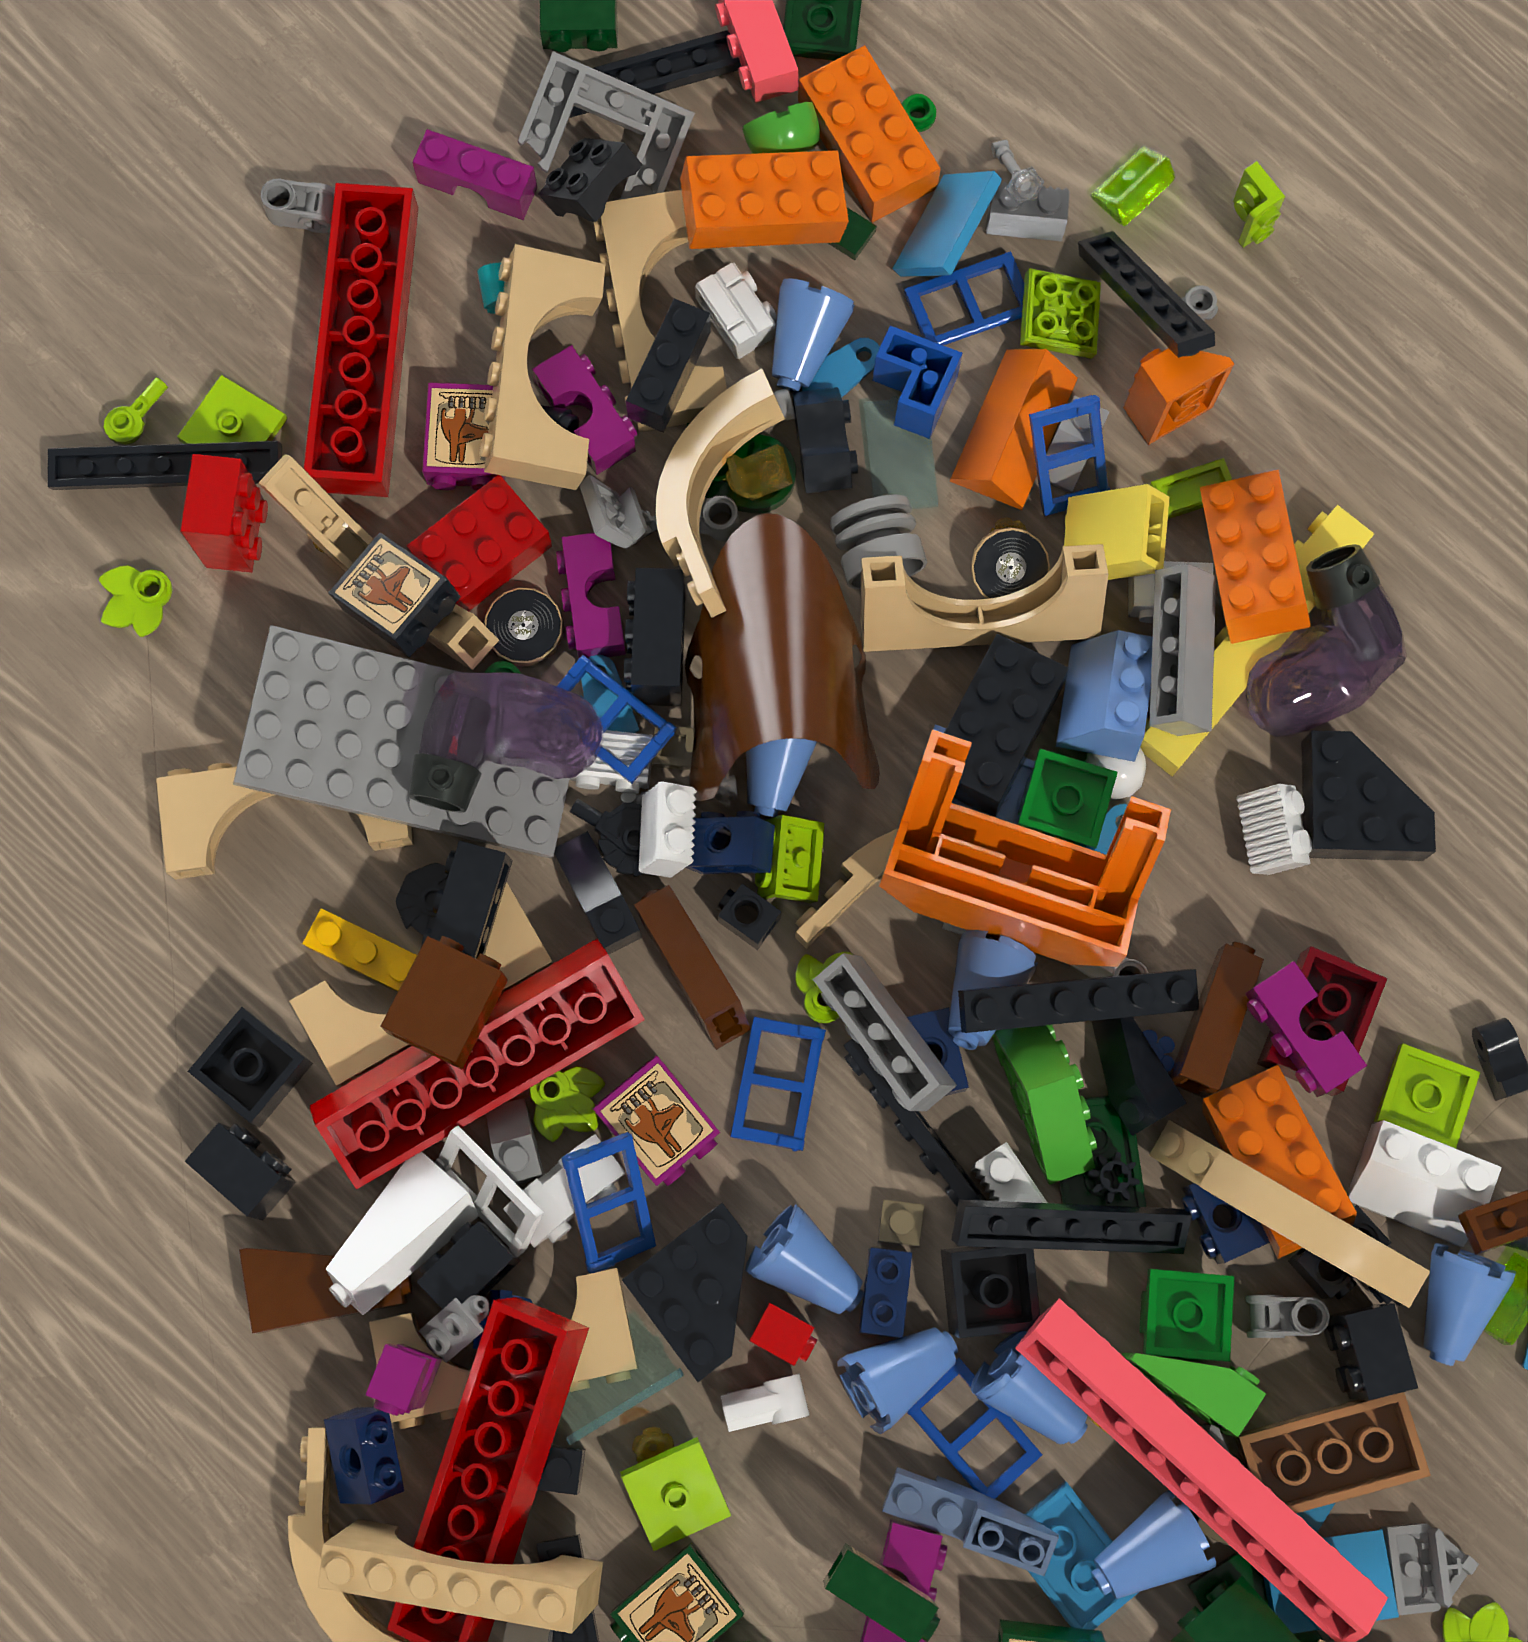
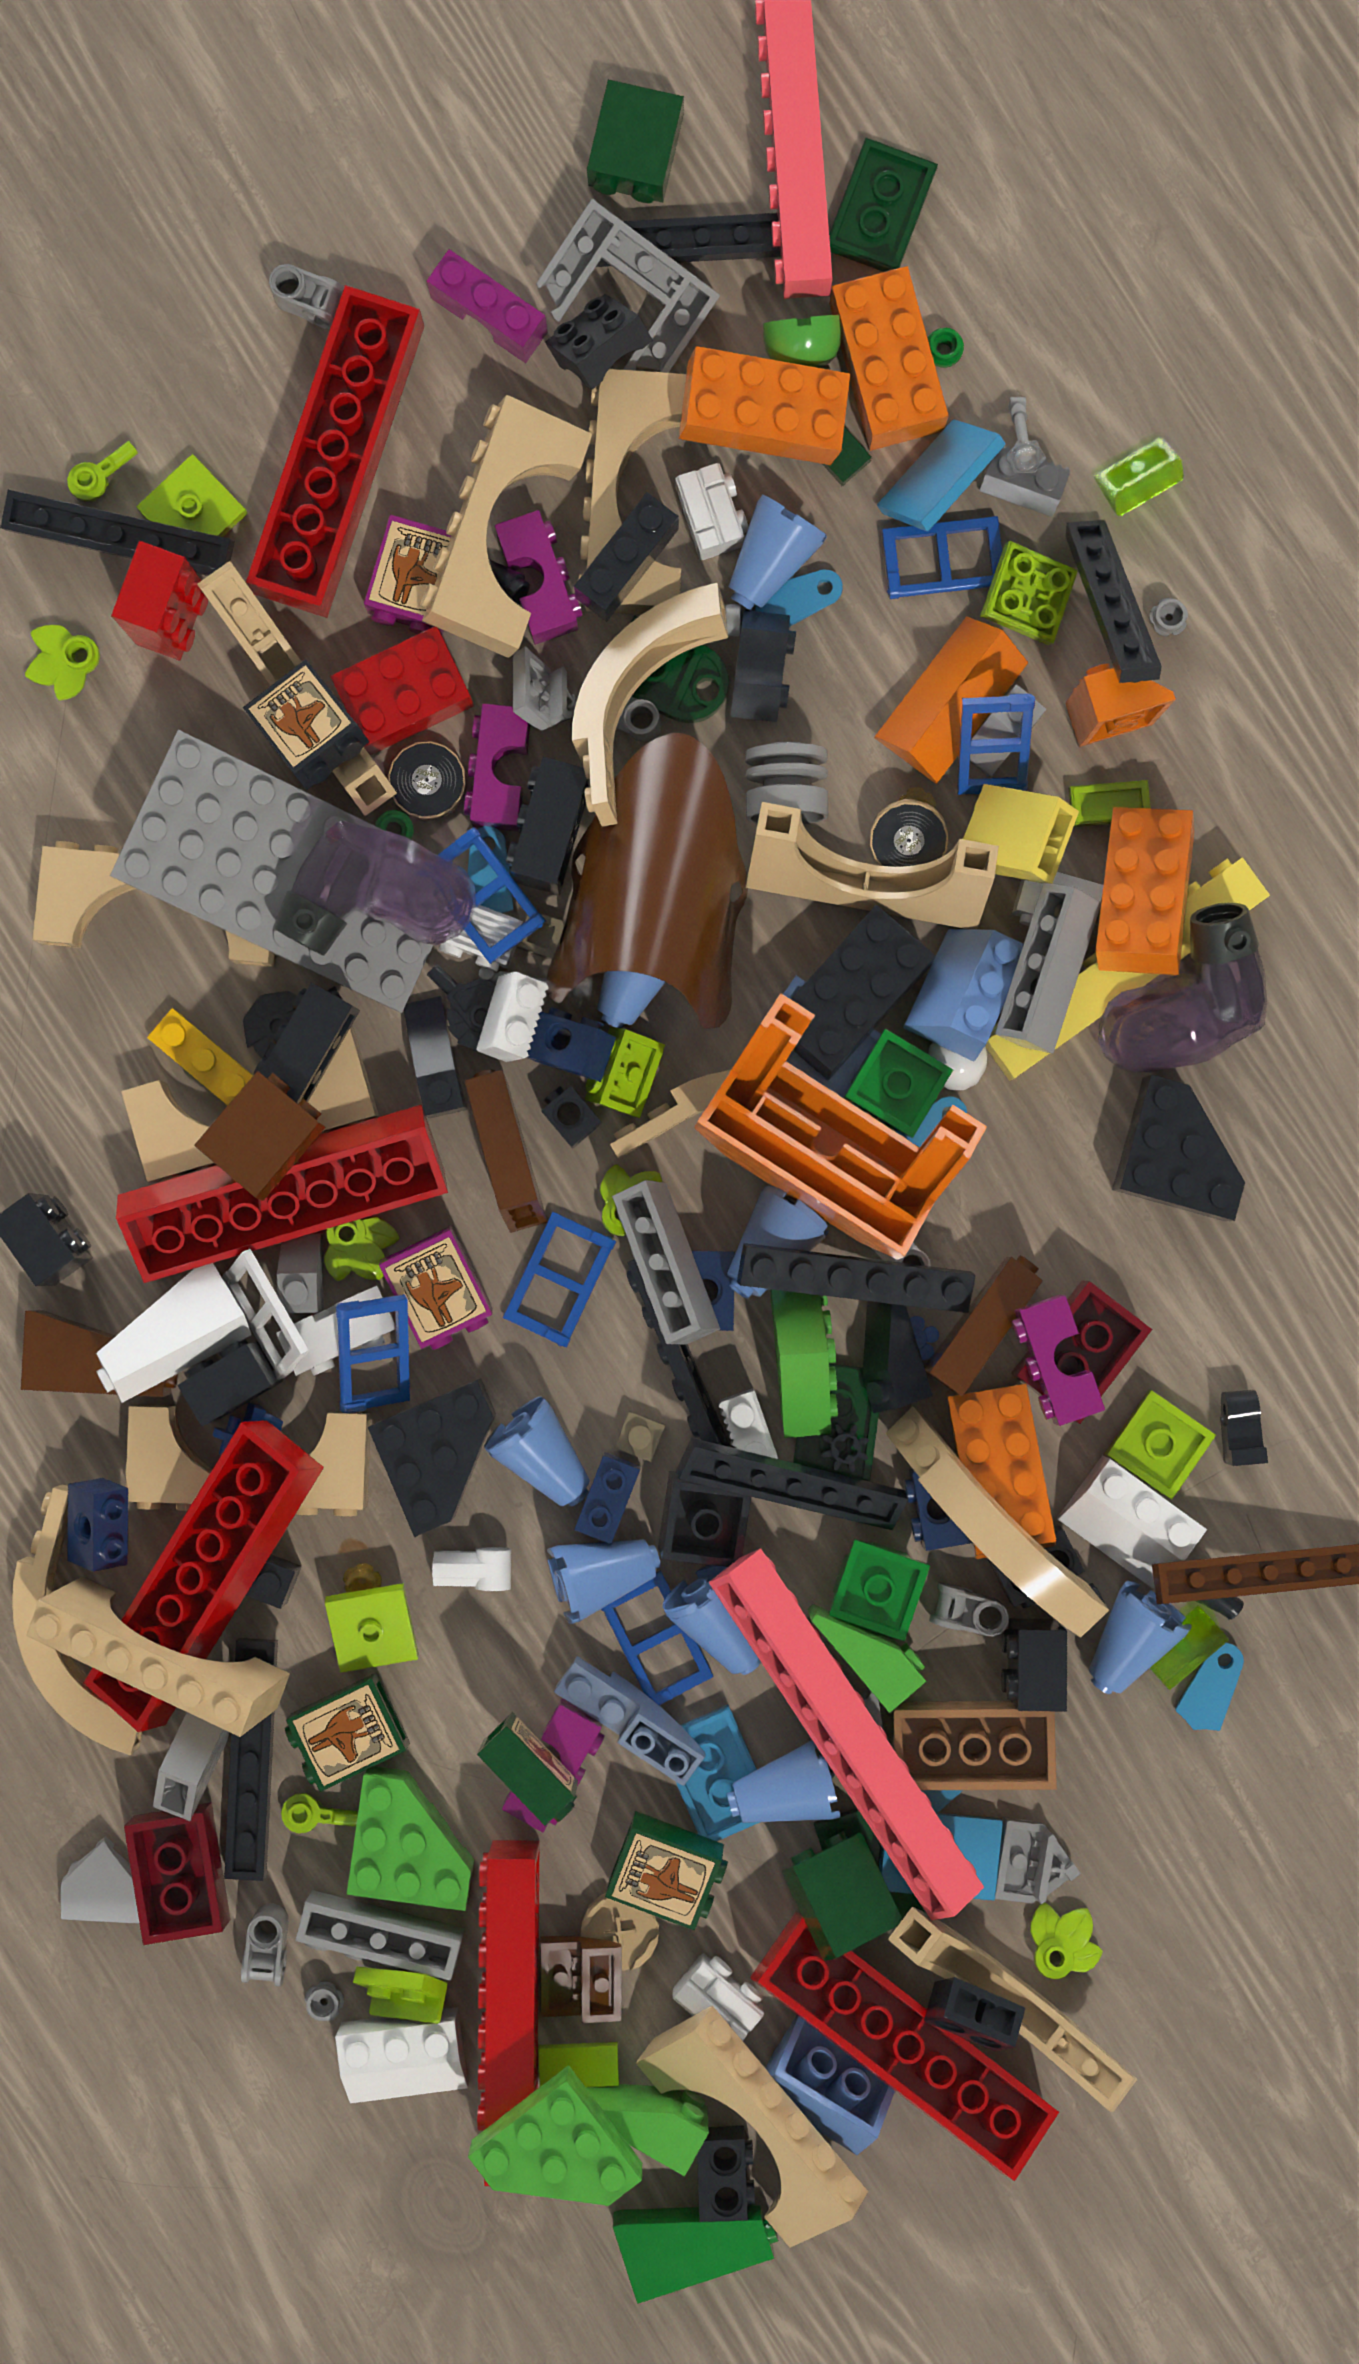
camera: 15 degrees right, 10 degrees up
(250, 1067) = (72, 1144): black brick -> none
(402, 1379) = (143, 1471): magenta arch -> none
(455, 1326) = (204, 1433): light grey hinge -> none
(490, 285) = (474, 426): teal piece -> none
(624, 1406) = (343, 1540): clear light blue piece -> none
(759, 473) = (689, 685): clear yellow bracket -> none
(784, 1335) = (503, 1514): red brick -> none
(898, 458) = (835, 695): clear light blue piece -> none
(922, 373) = (876, 623): blue brick -> none
(1257, 204) = (1254, 530): lime bracket -> none
(1274, 829) = (1089, 1158): white brick -> none

